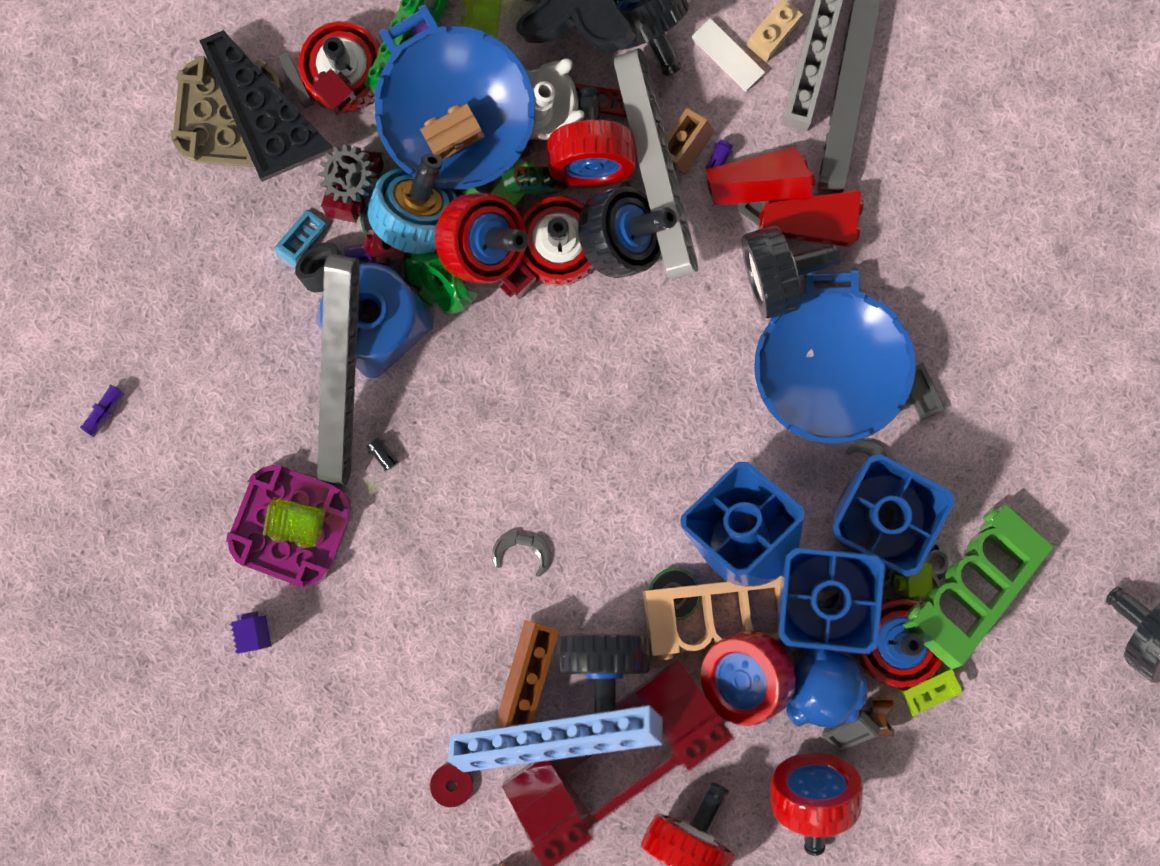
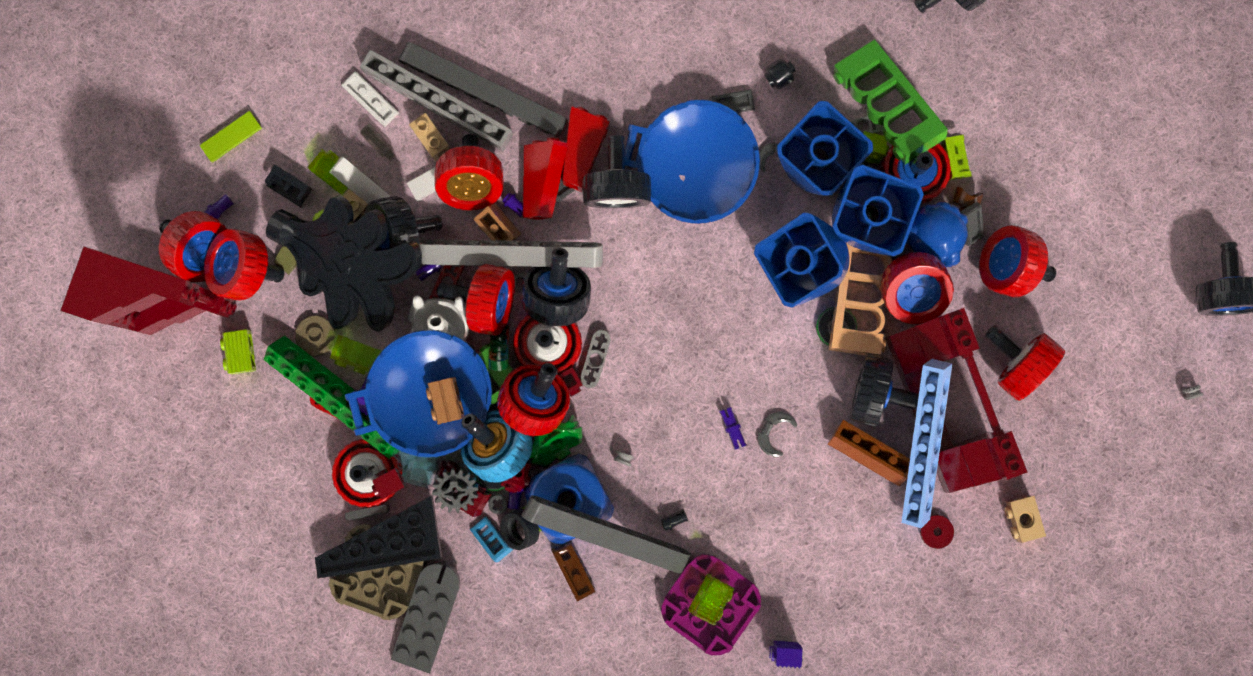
camera: 70 degrees left, 0 degrees up
(188, 186) = (427, 617): none -> dark grey plate
(287, 347) = (573, 571): none -> reddish brown plate
(347, 242) = (491, 504): none -> dark grey bush
(360, 130) = (420, 471): none -> clear light blue slope
(441, 372) = (623, 458): none -> light grey bush
(513, 497) = (733, 428): none -> dark purple pin
(549, 296) = (603, 355): none -> light grey beam
(609, 74) = (429, 270): none -> dark purple pin
(737, 86) = (469, 176): none -> red wheel
(975, 440) = (780, 73): none -> black head

